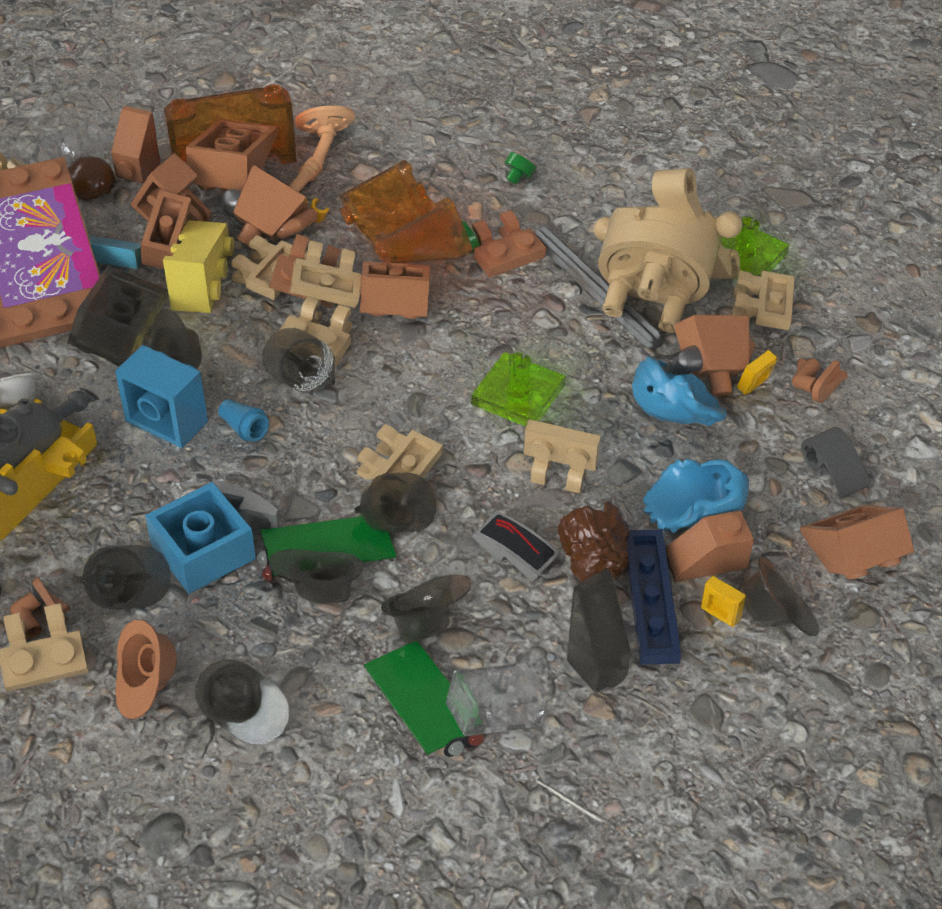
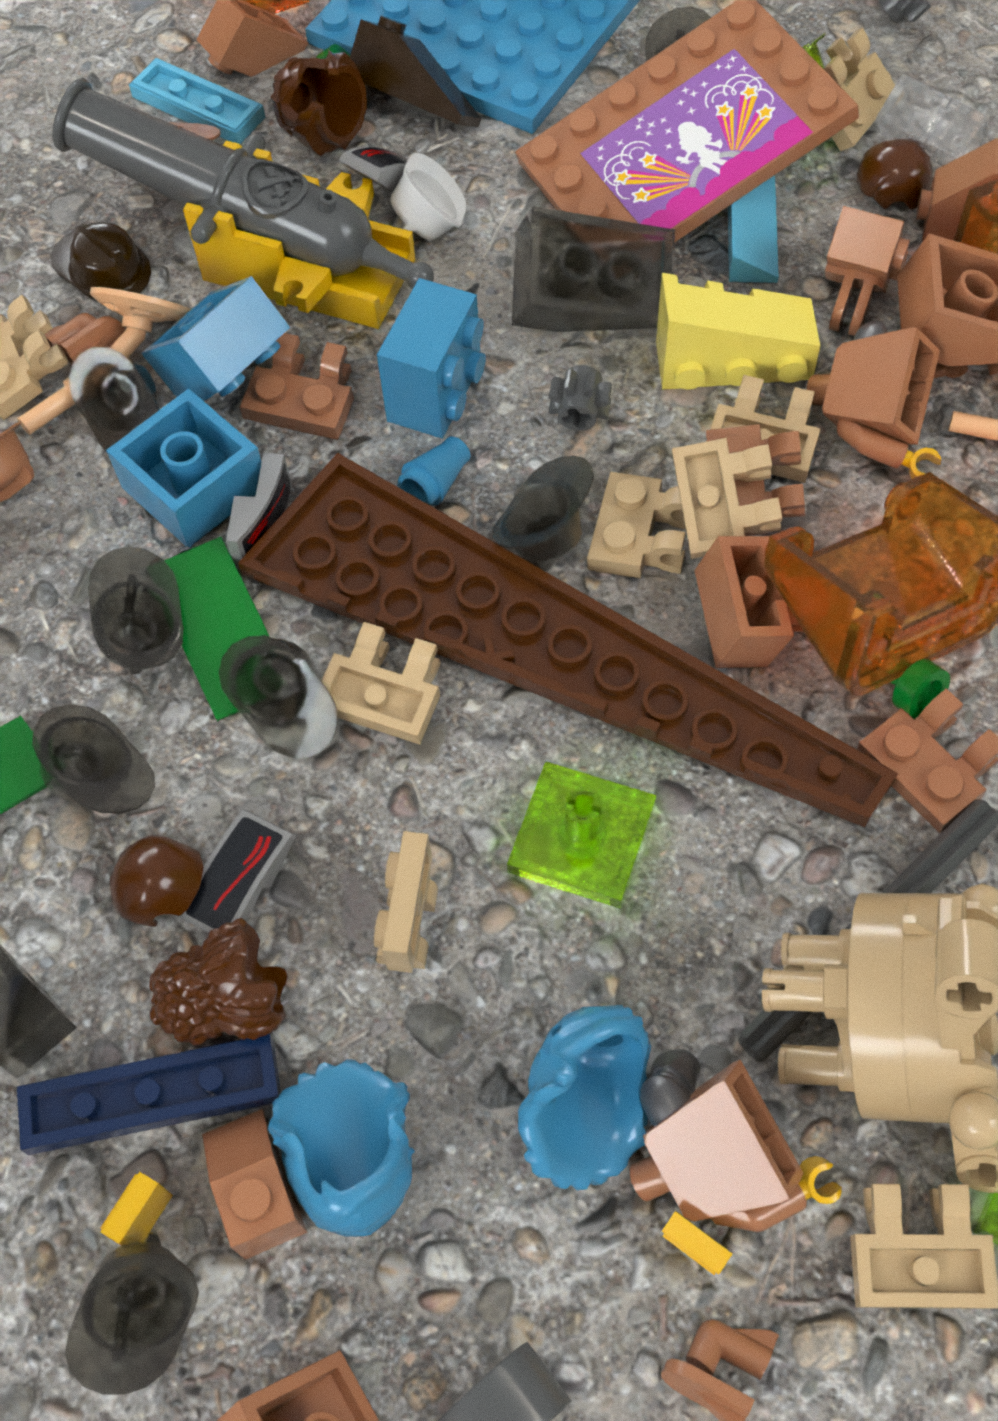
camera: 85 degrees right, 15 degrees up
(81, 606) = (138, 315): none -> light nougat dish
(98, 503) = (218, 341): none -> dark azure brick
(149, 490) = (300, 402): none -> nougat plate
(163, 228) = (782, 265): nougat slope -> none
(175, 339) = (533, 354): clear smoke piece -> none
(216, 339) = (580, 398): none -> dark grey gear
(321, 436) = (425, 576): none -> reddish brown wing
(514, 581) = (155, 879): none -> reddish brown hair

